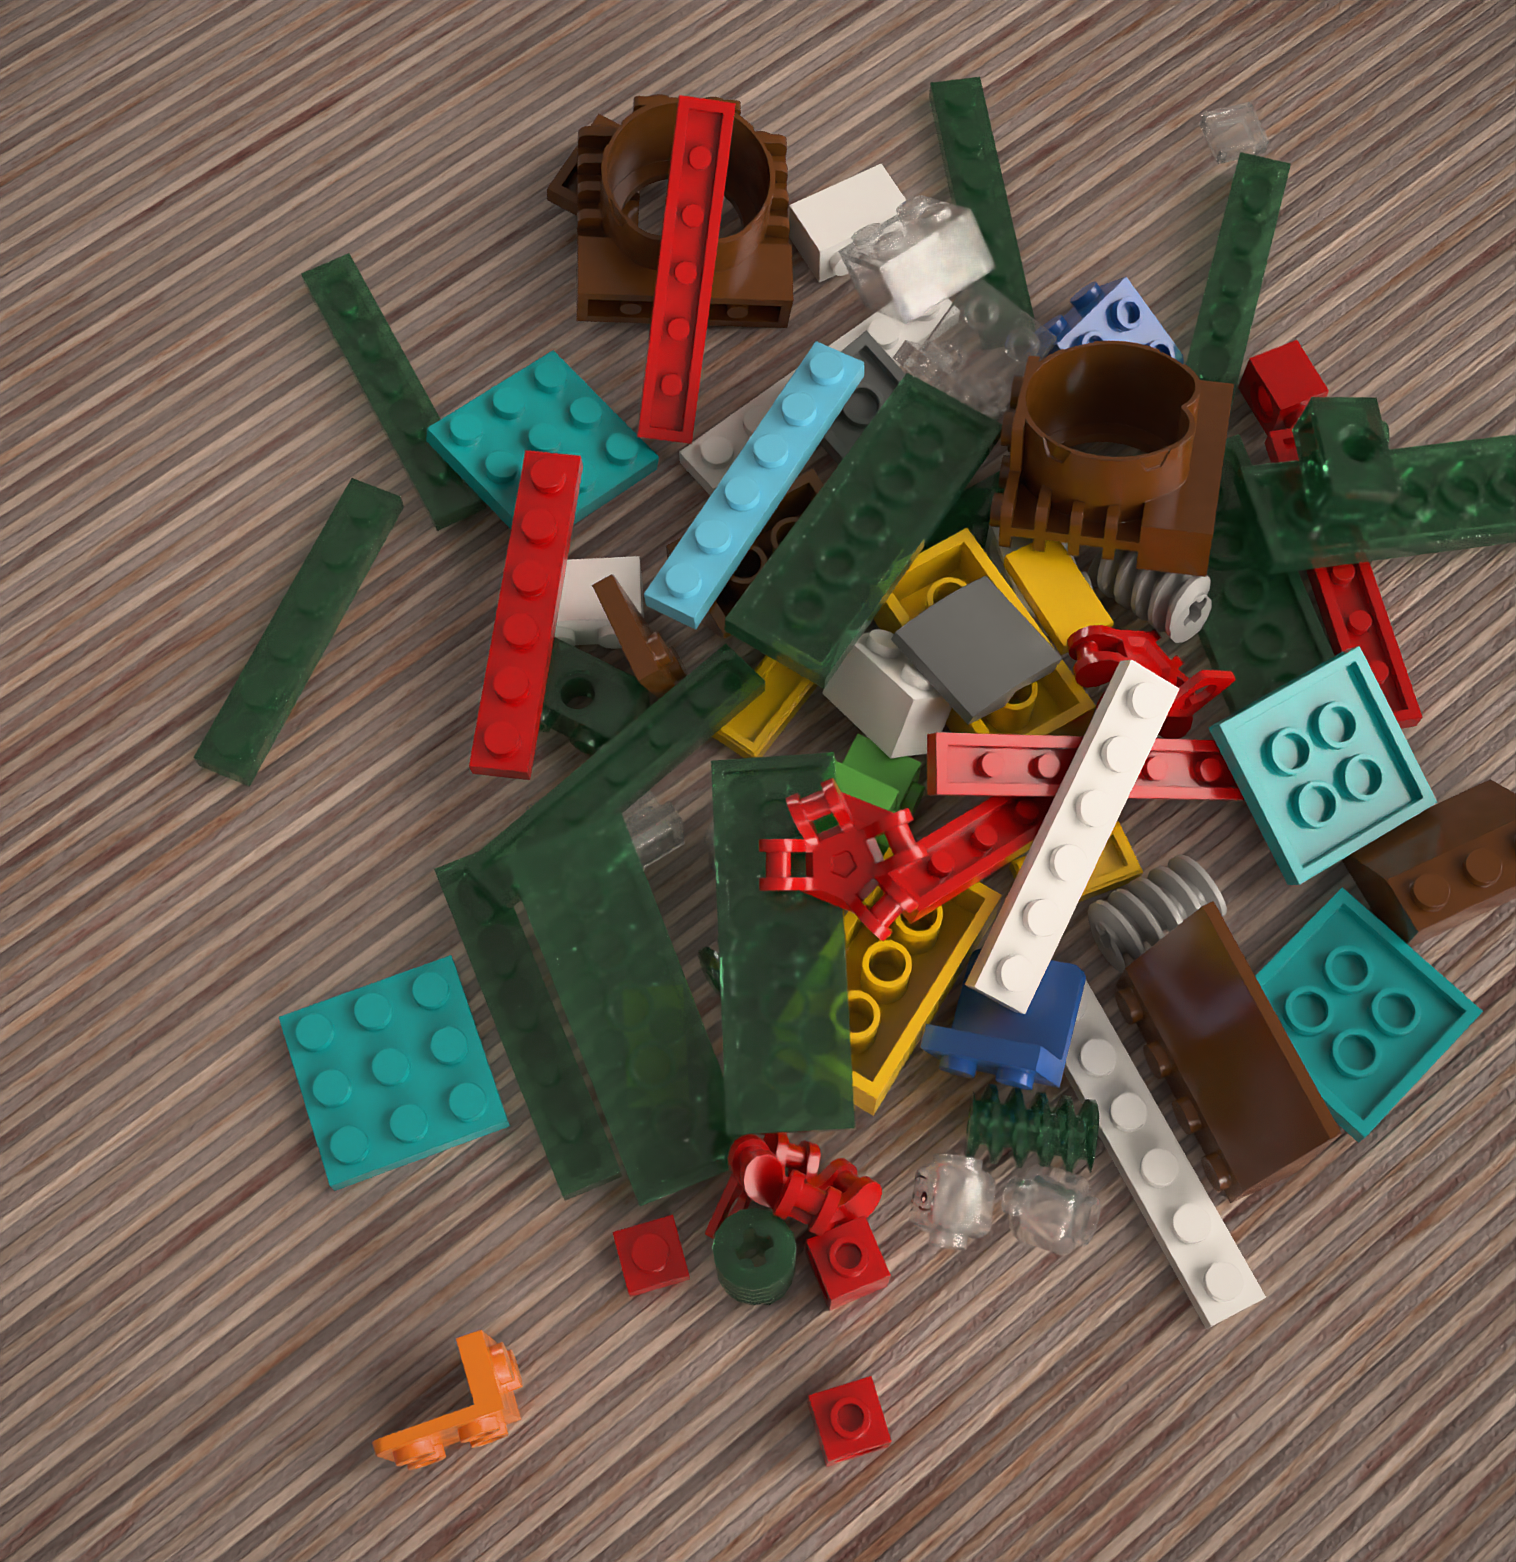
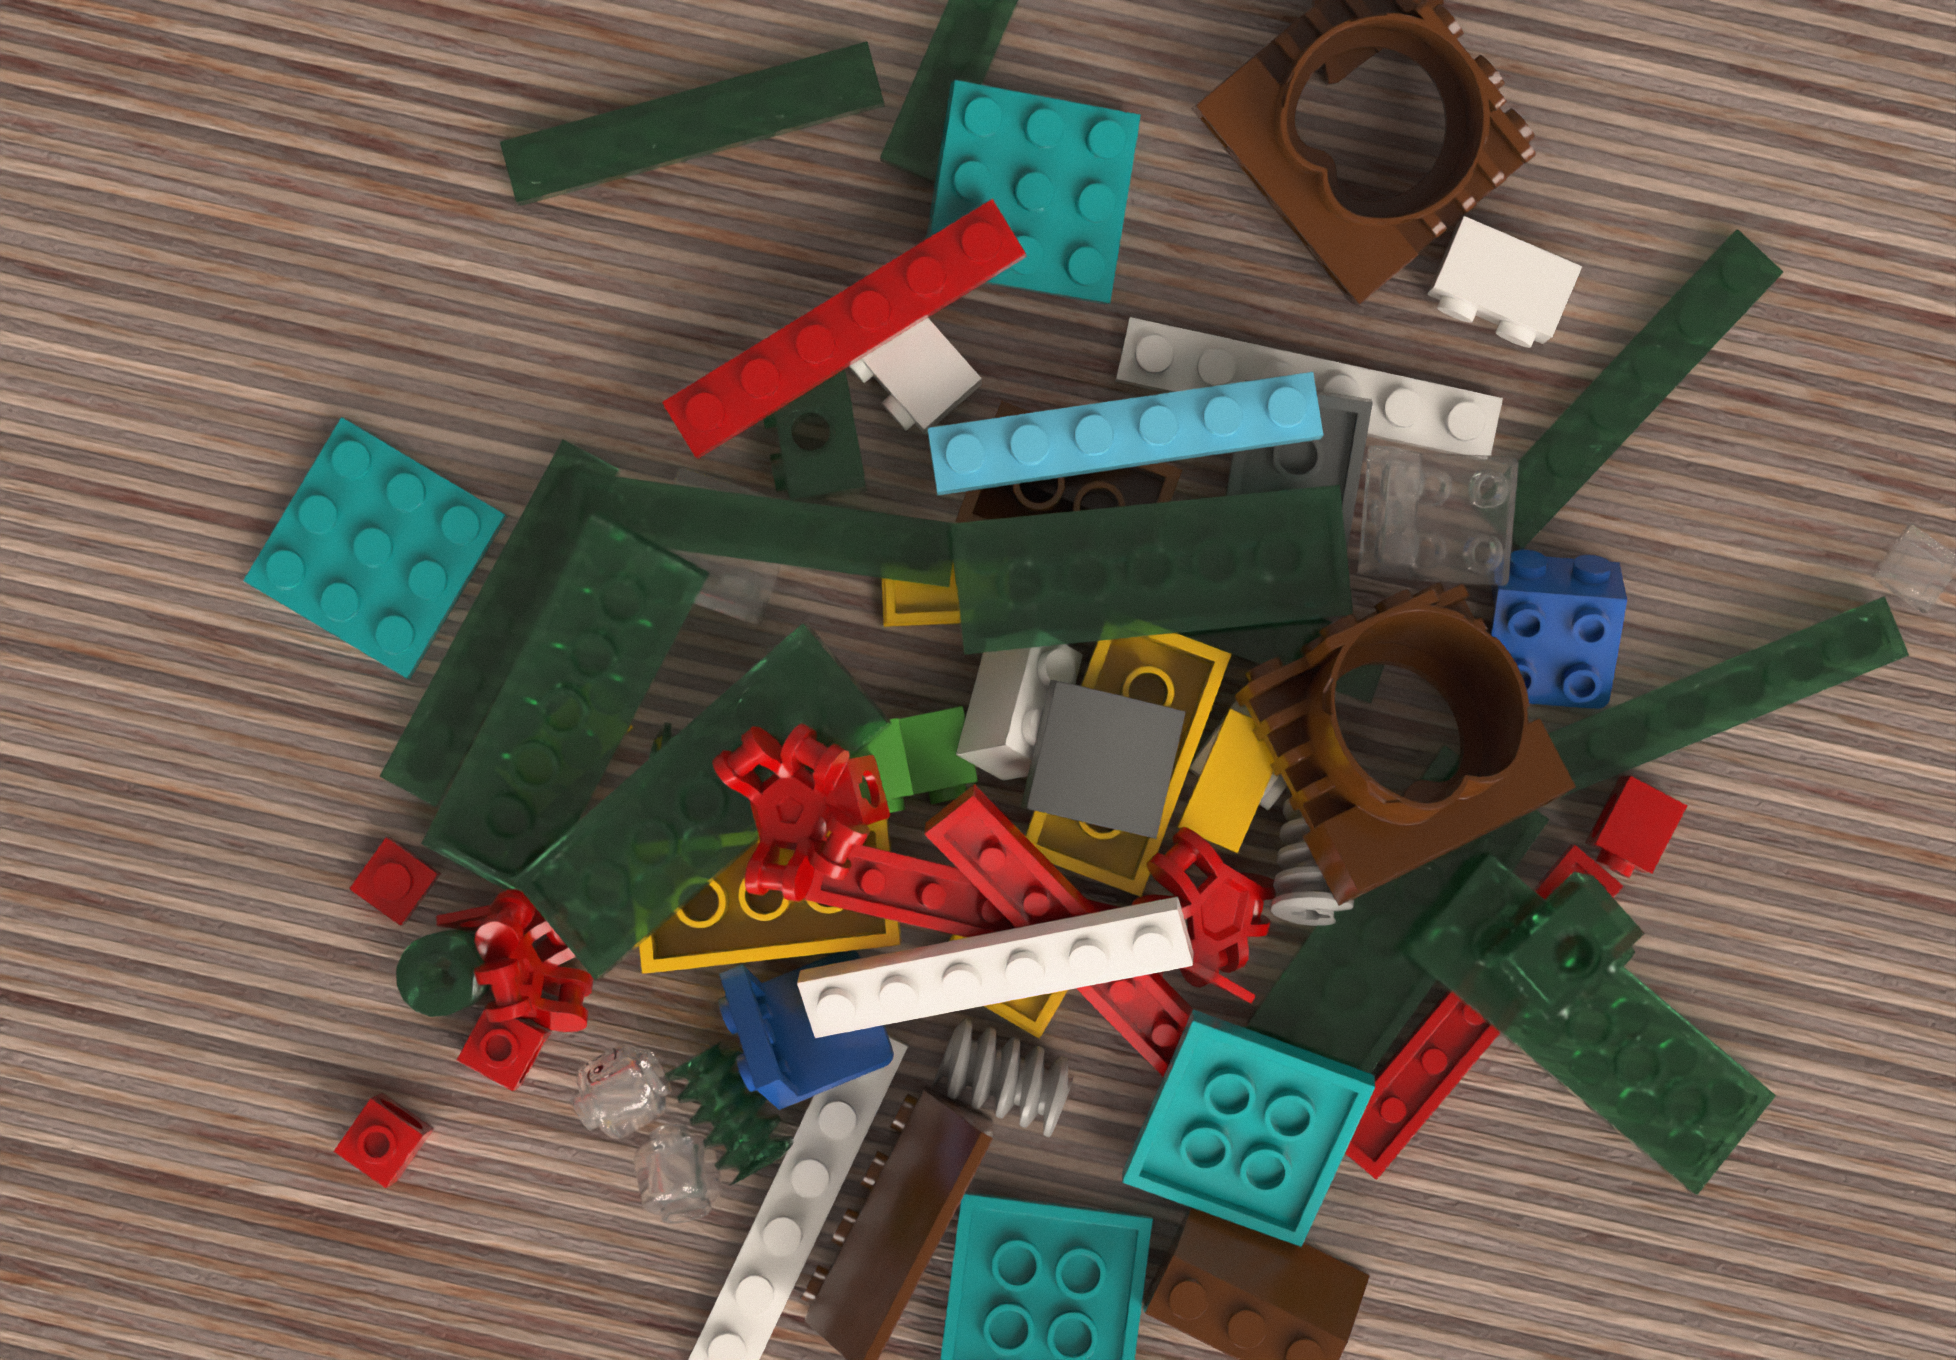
camera: 50 degrees right, 20 degrees up
(491, 1378) = (192, 840): orange bracket -> none
(650, 658) = (893, 456): reddish brown wing -> none
(685, 268) = (1279, 200): red plate -> none
(916, 257) = (1489, 388): clear brick -> none

